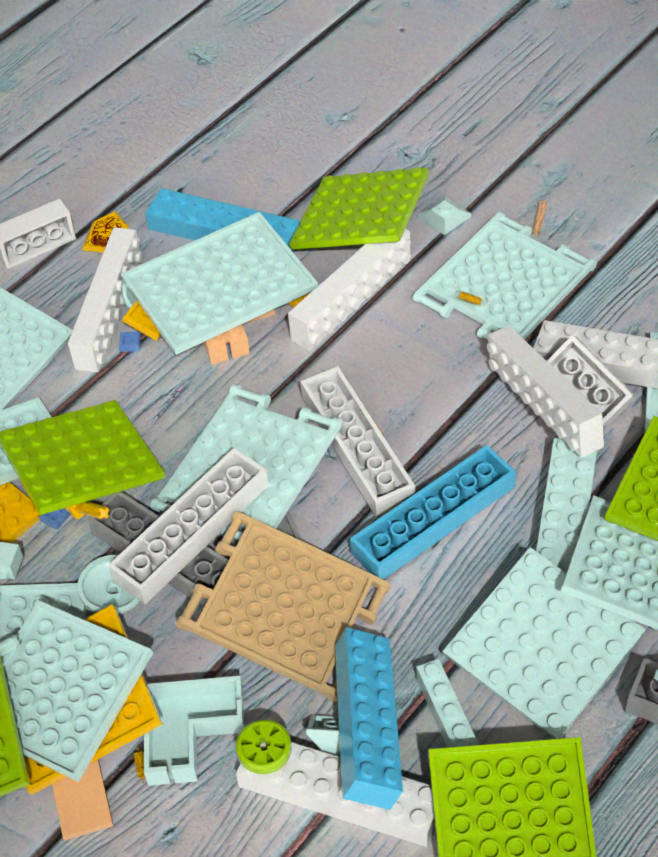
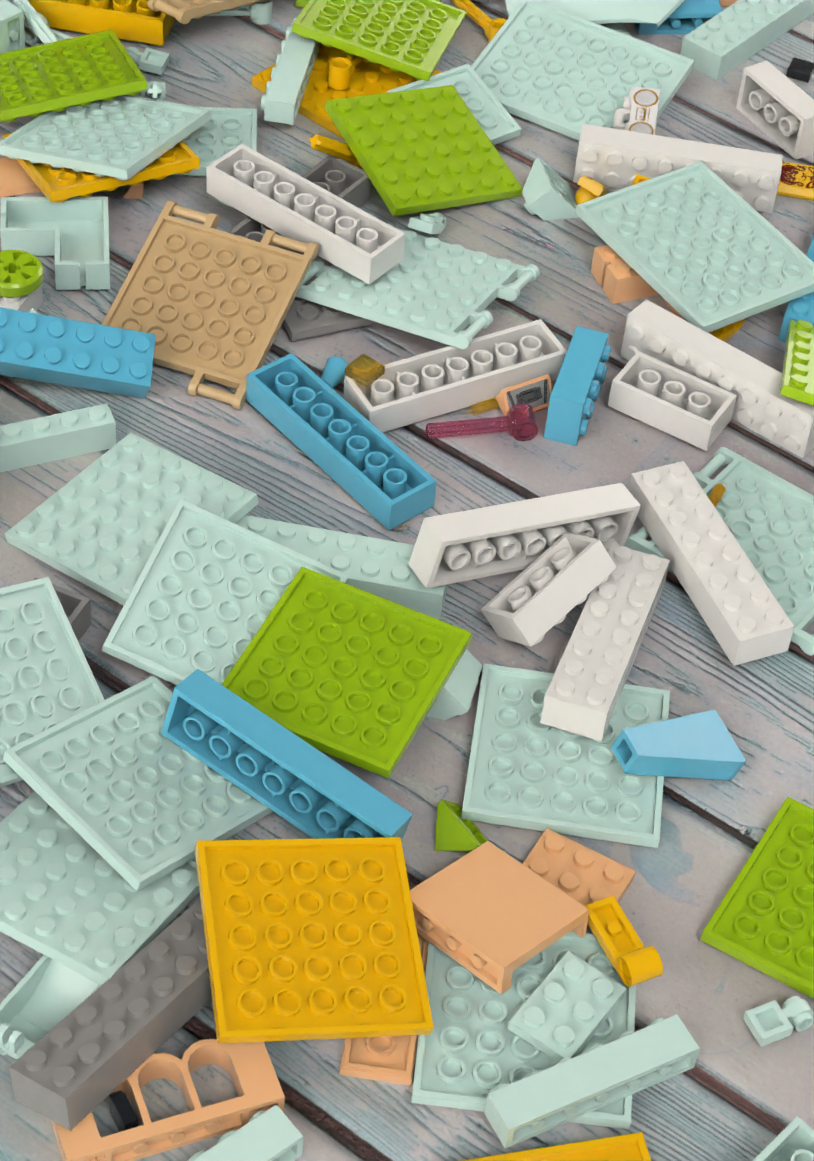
camera: 80 degrees right, 5 degrees down
(49, 314) = (639, 111): none -> white piece
(126, 354) = (589, 190): none -> yellow tile
(127, 382) = (548, 193): none -> light aqua slope
(170, 458) = (429, 223): none -> light aqua plate
(349, 522) = (334, 371): none -> medium azure cone
(368, 365) = (577, 386): none -> medium azure brick
(369, 402) = (532, 392): none -> slope
(371, 487) = (364, 370): none -> clear yellow tile
(373, 316) = (672, 400): none -> white brick
(398, 407) = (518, 423): none -> clear pink axle
(541, 299) = (710, 564): none -> white brick

